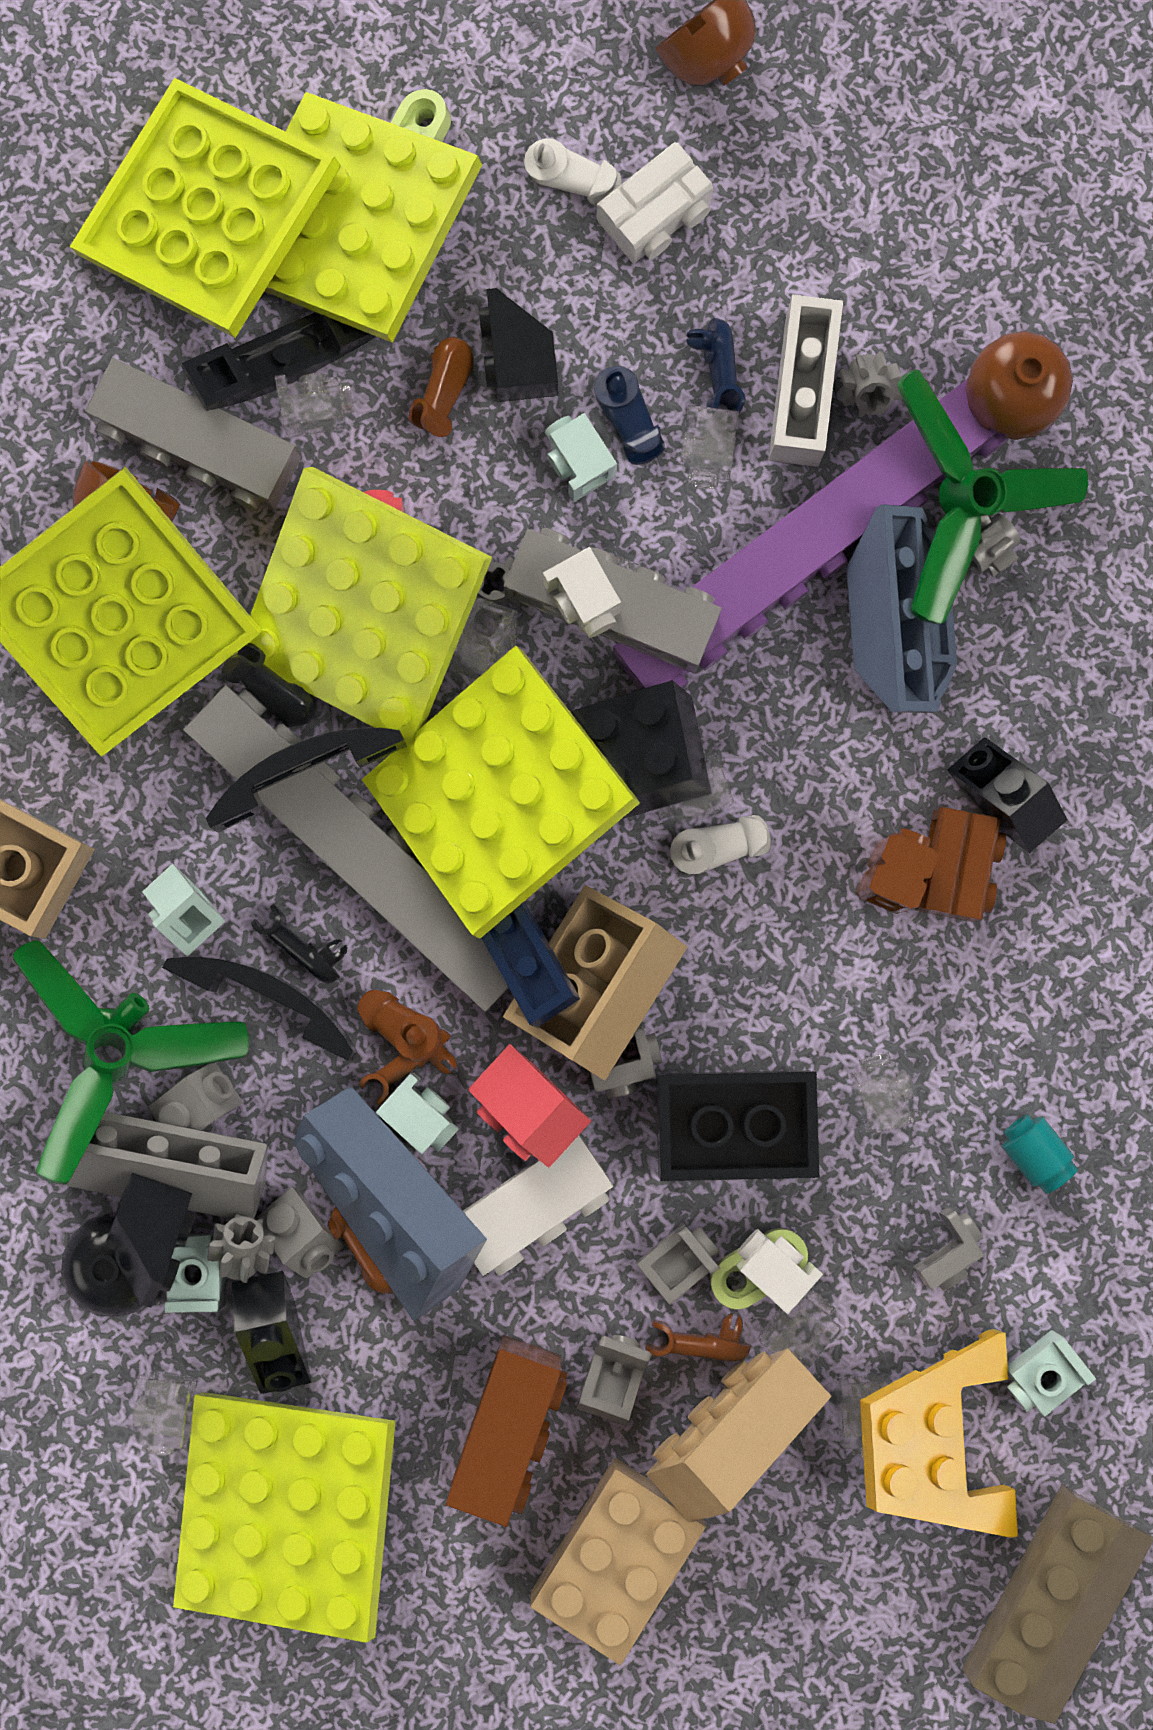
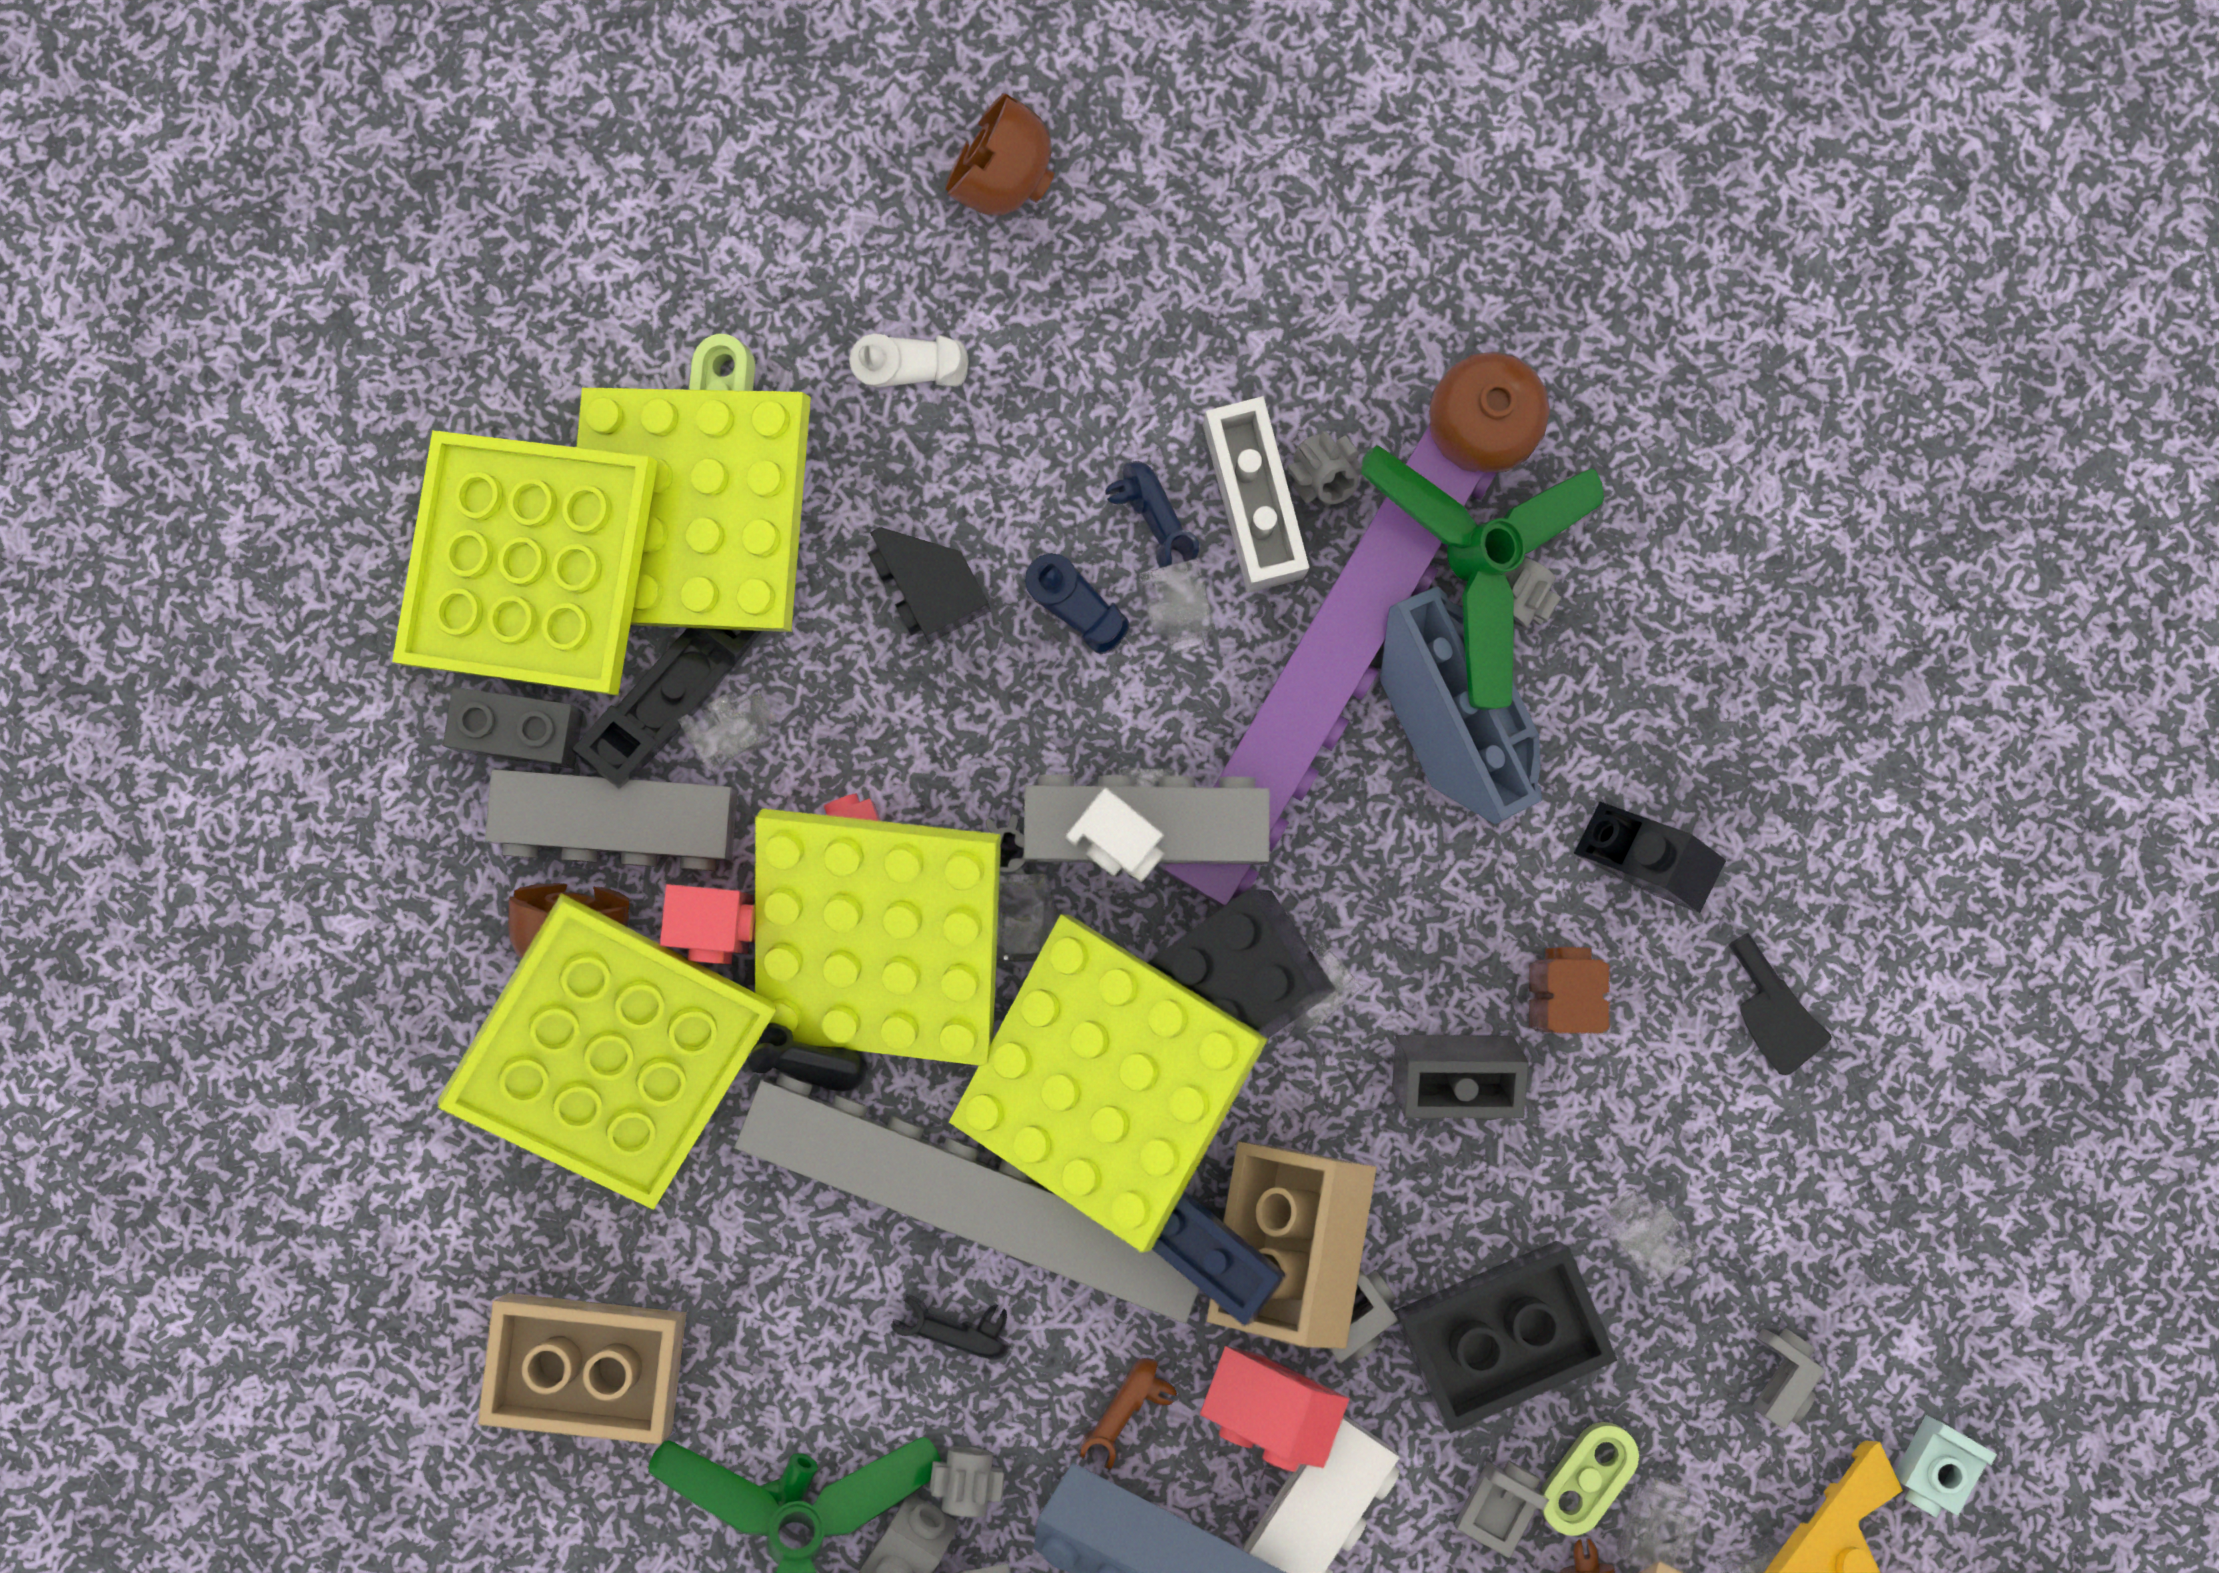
camera: 25 degrees left, 0 degrees up
(142, 333) = (512, 727): none -> dark grey brick
(181, 910) = (811, 1345): light aqua brick -> none
(233, 542) = (708, 922): none -> coral brick
(242, 799) = (834, 1199): black slope -> none
(261, 1068) = (967, 1481): none -> light grey gear
(322, 1028) = (1018, 1410): black slope -> none
(406, 1029) = (1109, 1376): dark orange piece -> none
(418, 1115) = (1157, 1463): light aqua brick -> none
(451, 369) = (864, 632): dark orange piece -> none
(579, 455) = (1041, 670): light aqua brick -> none
(656, 204) = (1014, 362): white brick -> none
(713, 846) = (1356, 1038): white piece -> none
(776, 1269) = (1611, 1477): white brick -> none
(783, 906) = (1459, 1076): none -> dark grey brick
(961, 876) = (1631, 938): dark orange brick -> none
(1039, 1153) = (1838, 1232): teal brick -> none
(1057, 963) = (1774, 1015): none -> black piece

